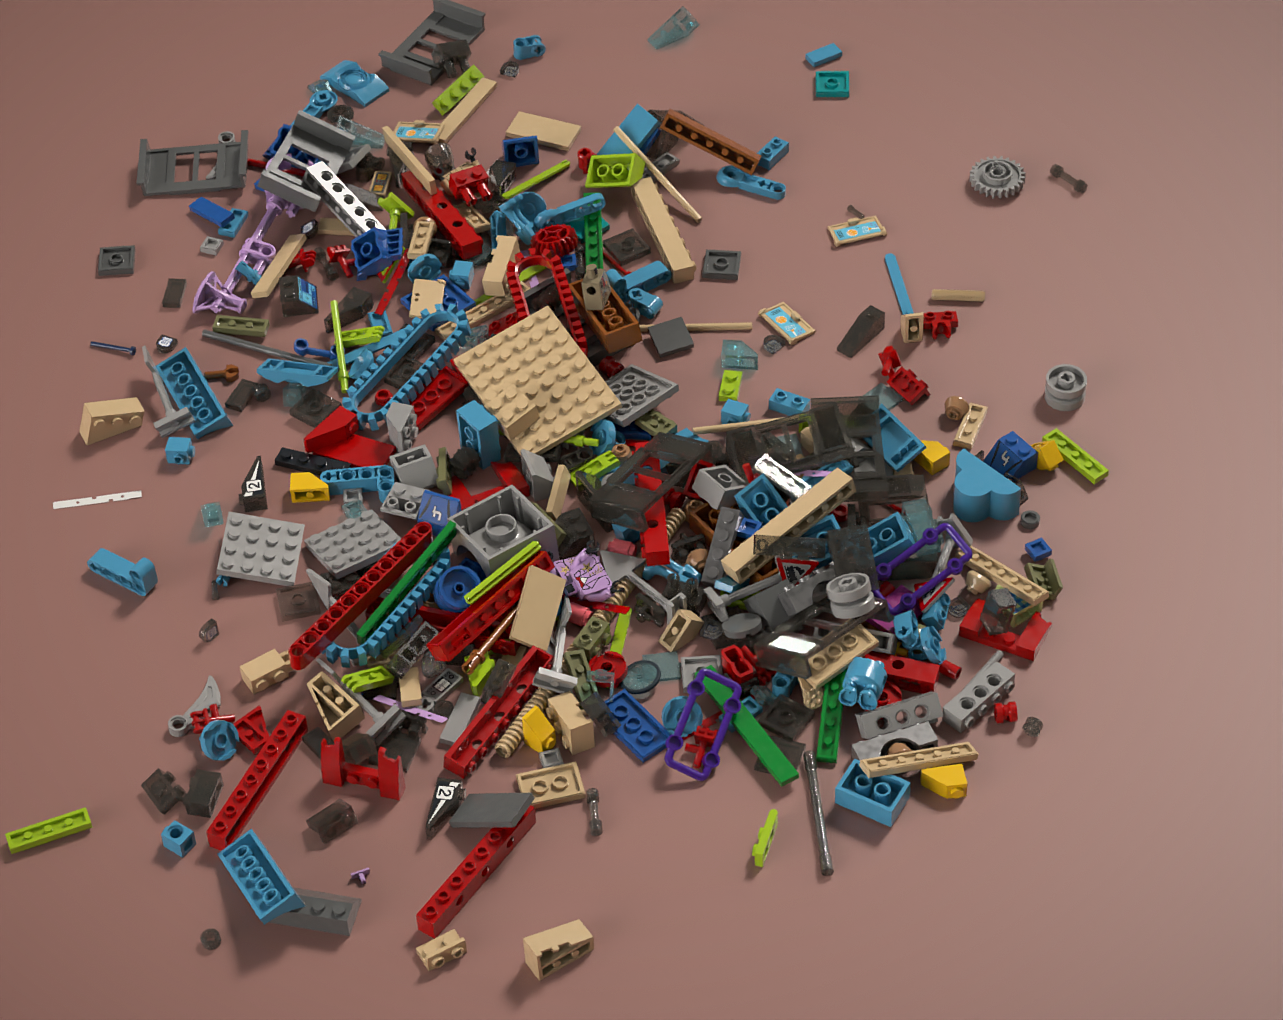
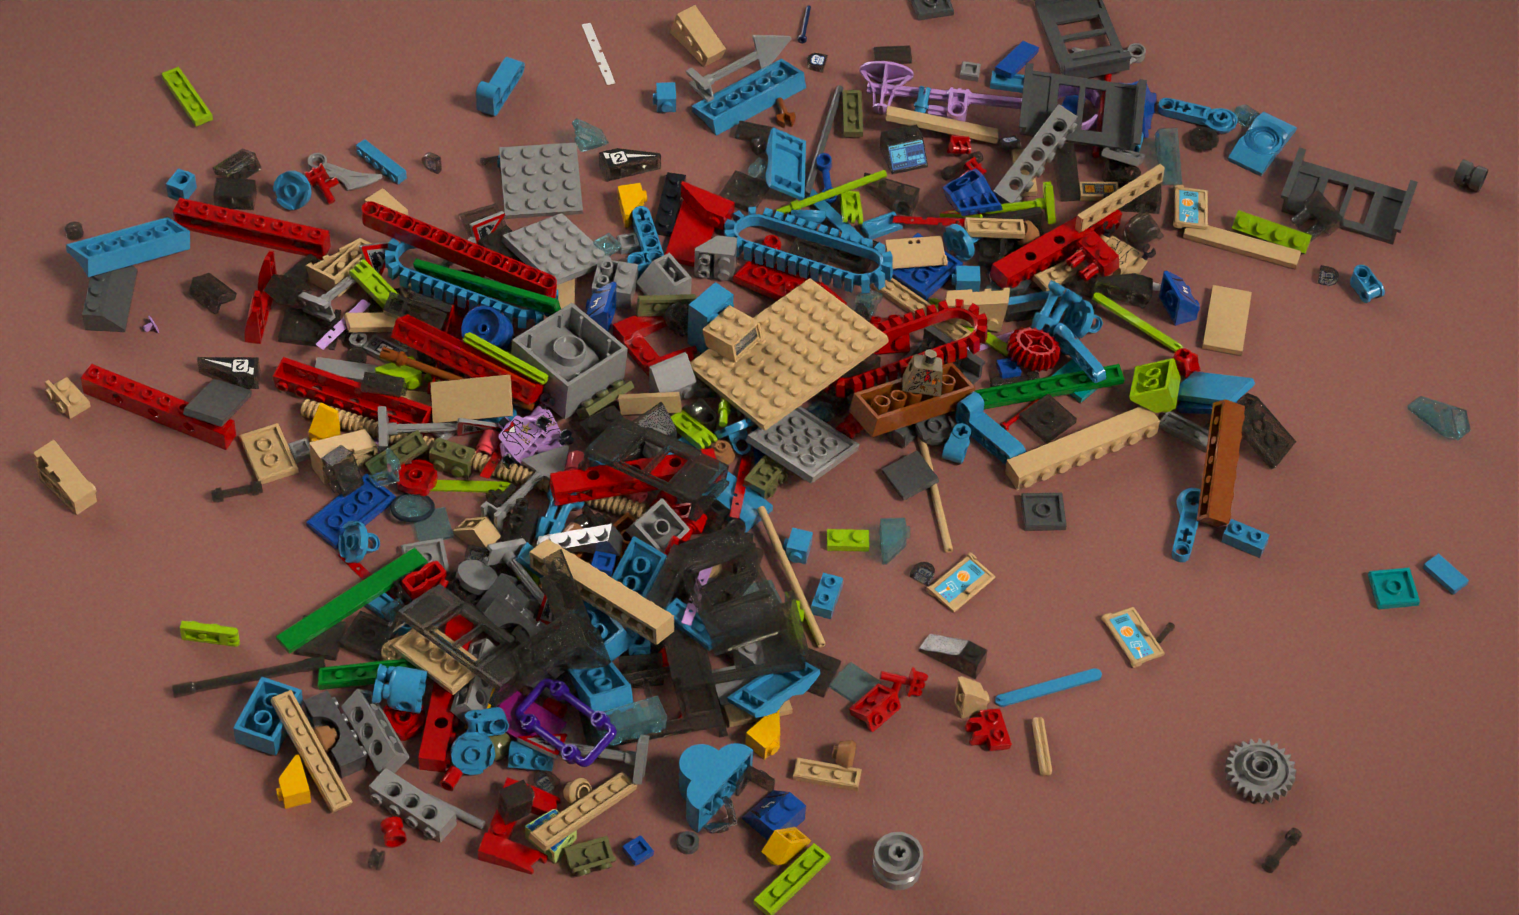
camera: 75 degrees right, 5 degrees up
(193, 673) = (381, 161): none -> dark azure piece
(252, 730) = (316, 214): red wing -> none
(658, 174) = (1164, 426): tan piece -> none
(675, 741) = (362, 578): dark purple bar -> none
(704, 738) = (333, 569): red arm -> none
(850, 595) = (496, 650): light grey wheel -> none

